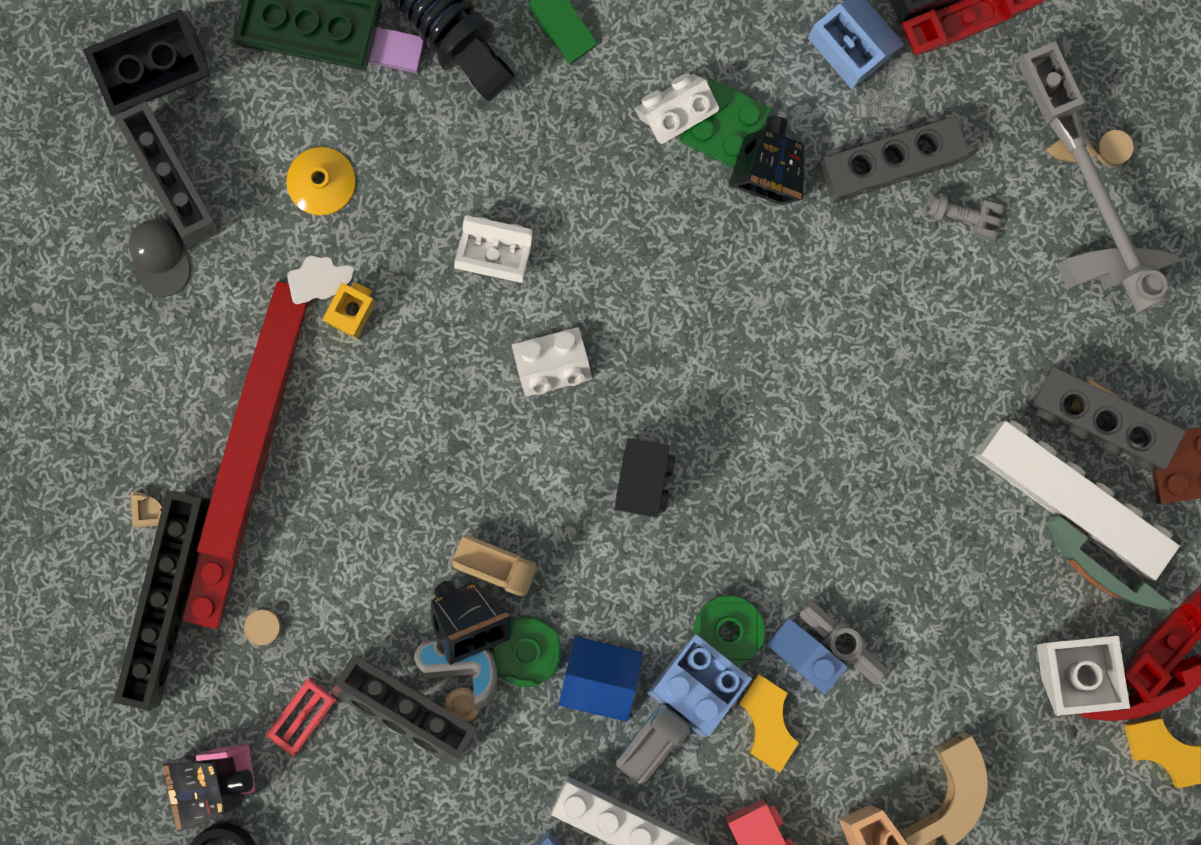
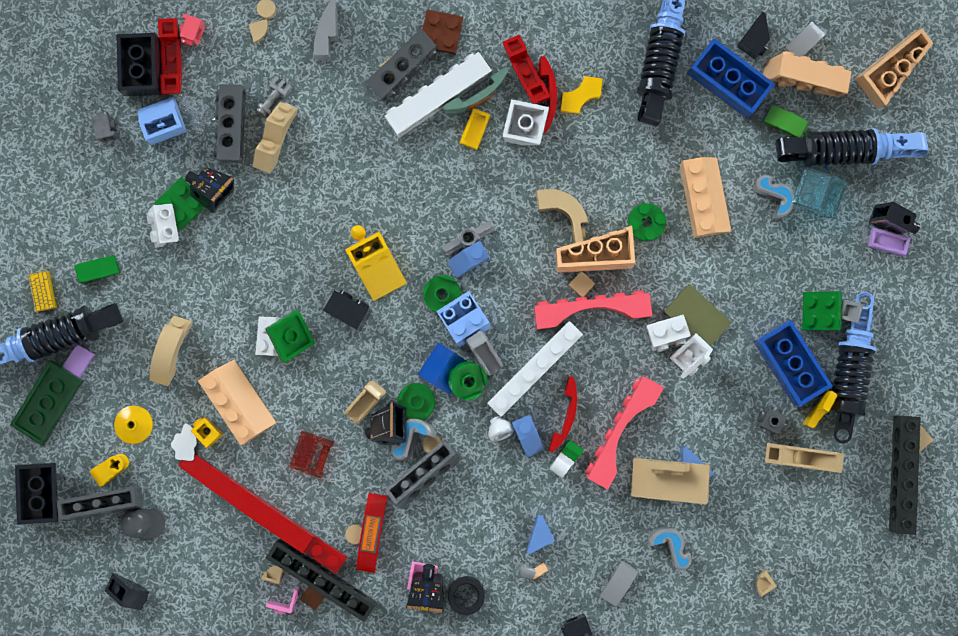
camera: 65 degrees left, 0 degrees up
(33, 273) = (126, 592): none -> black slope
(94, 546) = (281, 608): none -> bright pink bracket
(127, 591) = (312, 598): none -> reddish brown tile
(228, 167) = (107, 470): none -> yellow piece
(275, 654) = (371, 532): none -> red slope
(320, 692) = (414, 524): coral tile -> none
(374, 490) = (305, 453): none -> clear red plate
(418, 343) = (237, 402): none -> light nougat slope
(464, 193) = (166, 350): none -> tan arch
(494, 248) = (201, 345): white bracket -> none
(529, 816) = (500, 429): none -> white brick
(563, 394) = (290, 336): none -> green plate
(598, 713) = (460, 372): none -> green plate
(735, 499) = (377, 266): none -> yellow slope
(771, 738) = (486, 289): yellow tile -> none
(907, 240) = (275, 130): none -> tan arch
(1029, 32) = (191, 30): none -> coral brick
(1038, 585) = (475, 129): none -> yellow tile
(1060, 107) = (233, 29): light grey bar -> none

